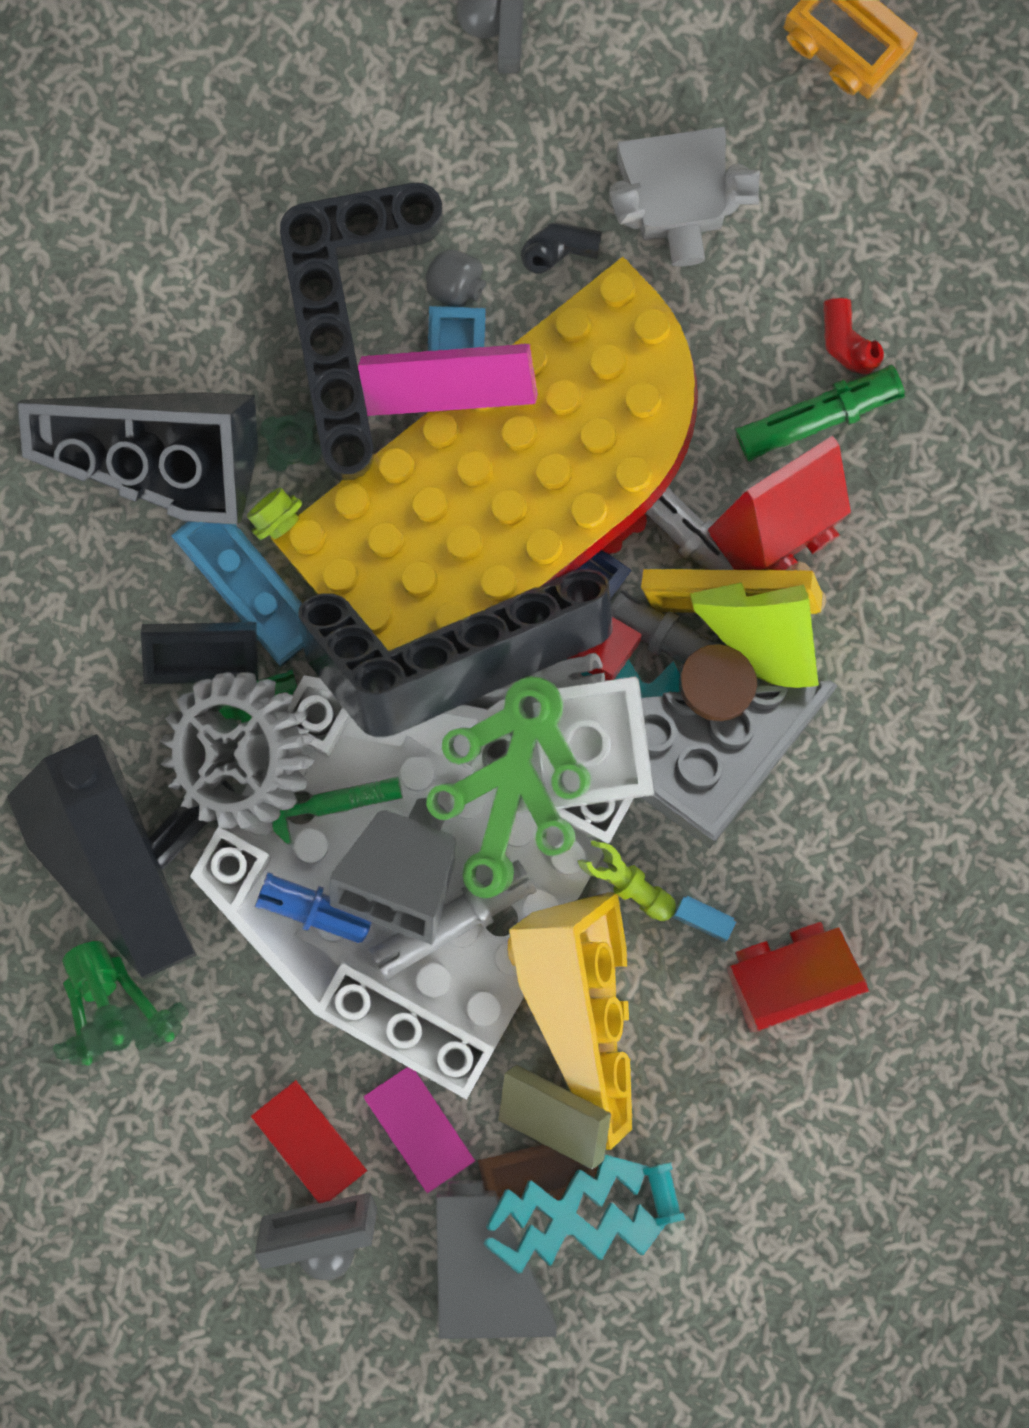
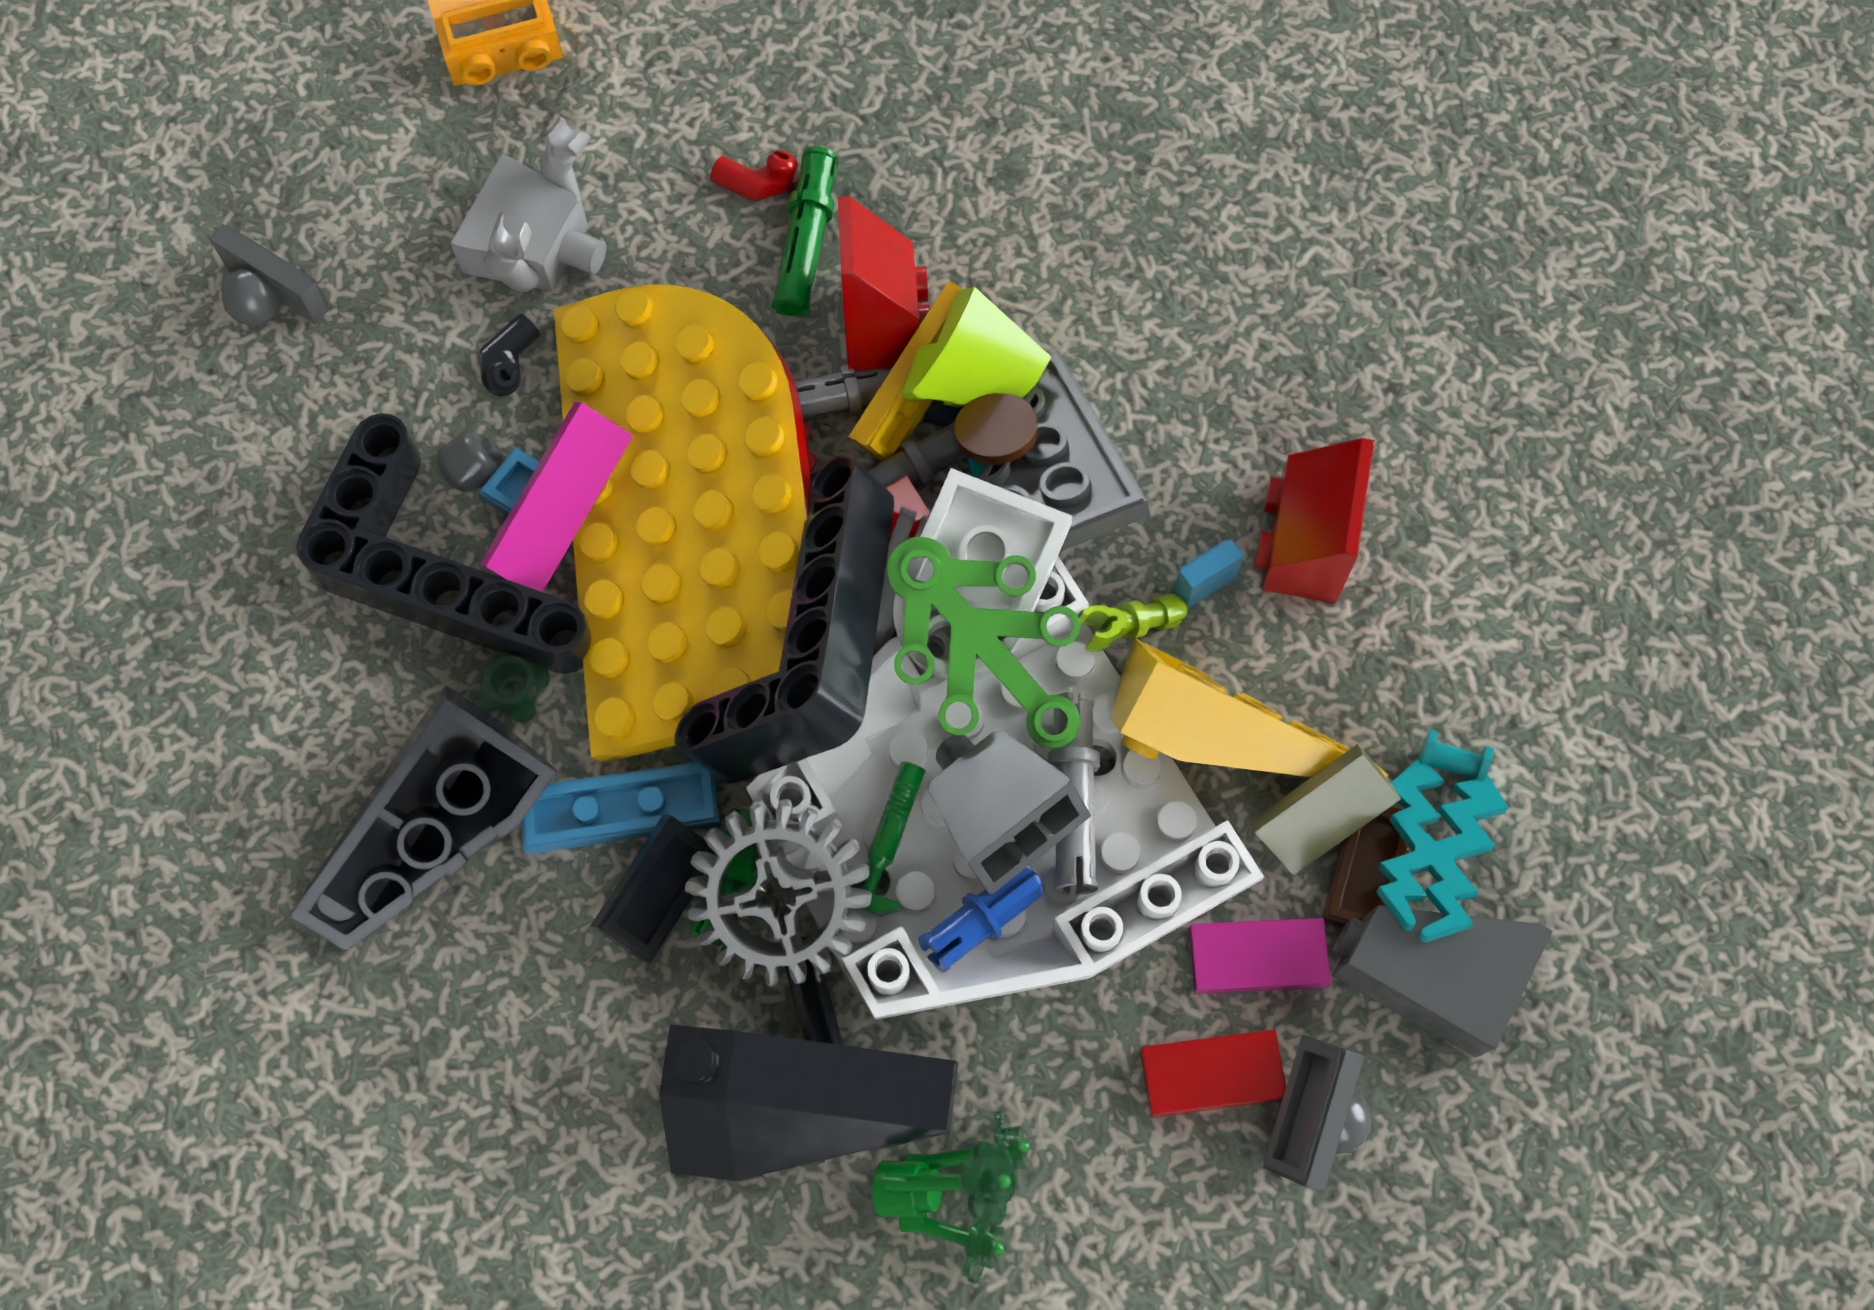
camera: 55 degrees left, 15 degrees down
(274, 514) = (571, 738): lime plate -> none

